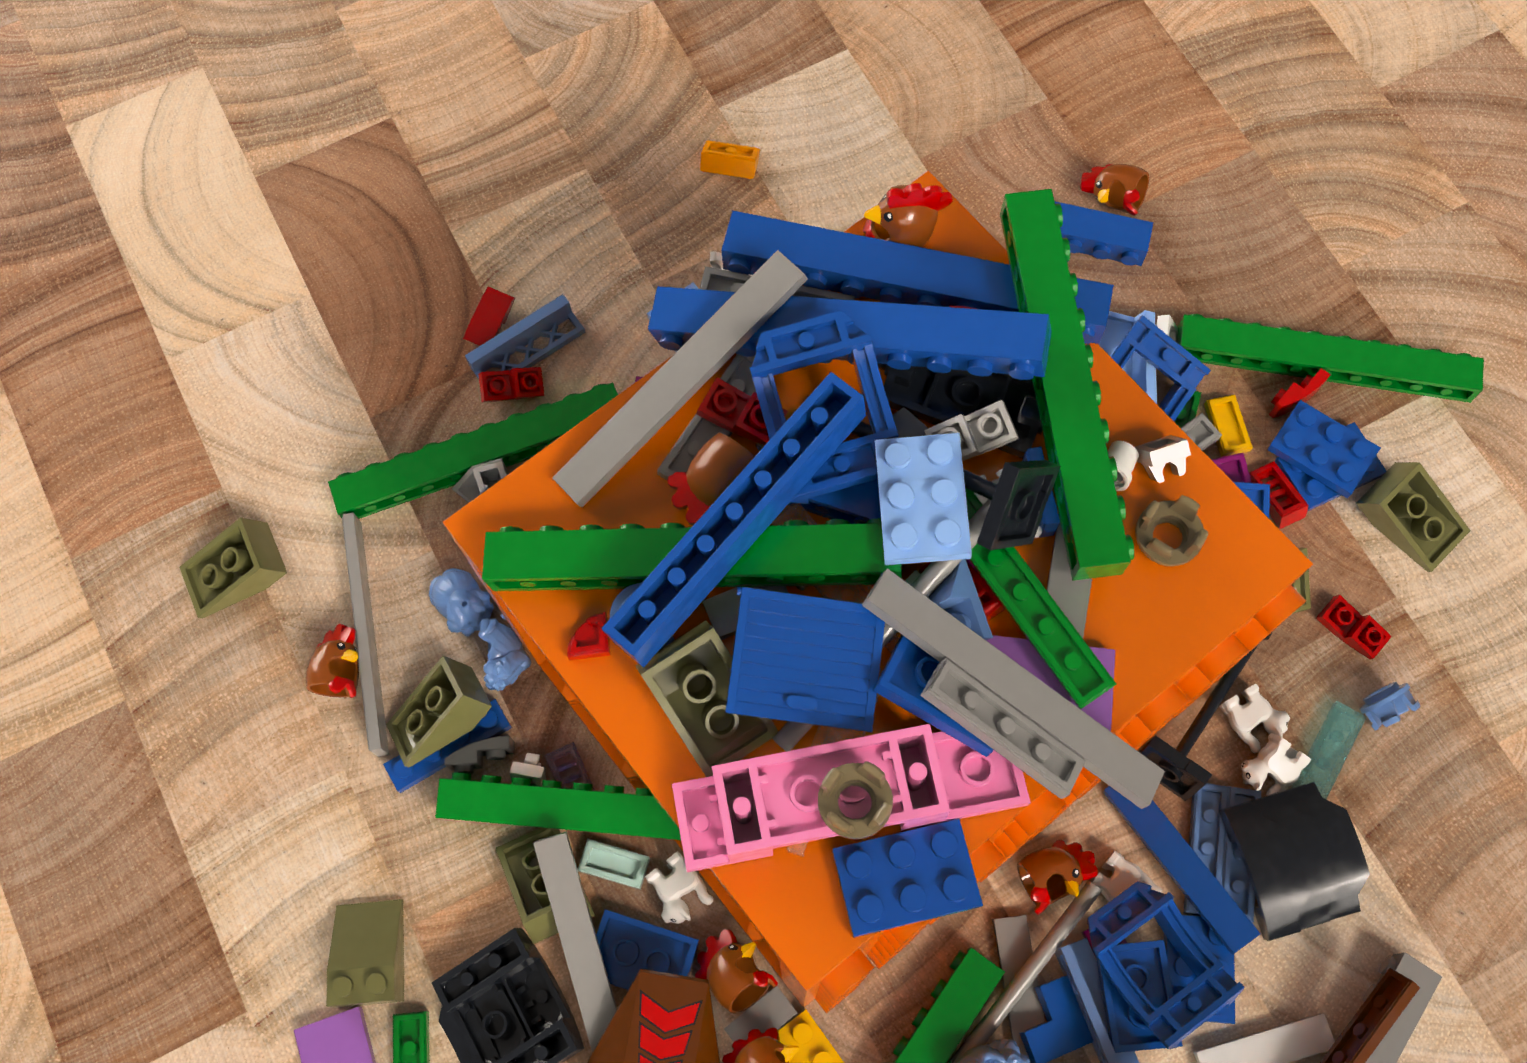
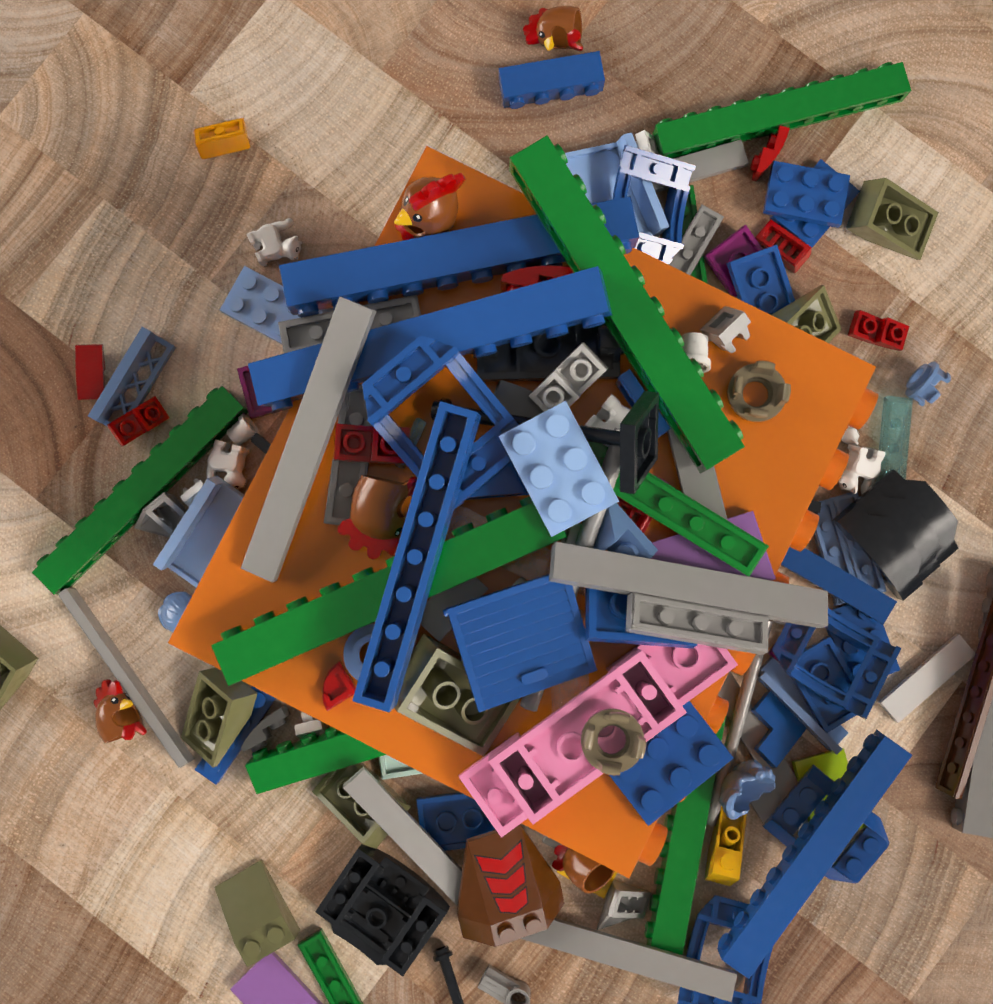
camera: 30 degrees left, 15 degrees up
(1227, 418) = (723, 201): yellow tile -> none
(1231, 379) = (713, 161): none -> light grey tile

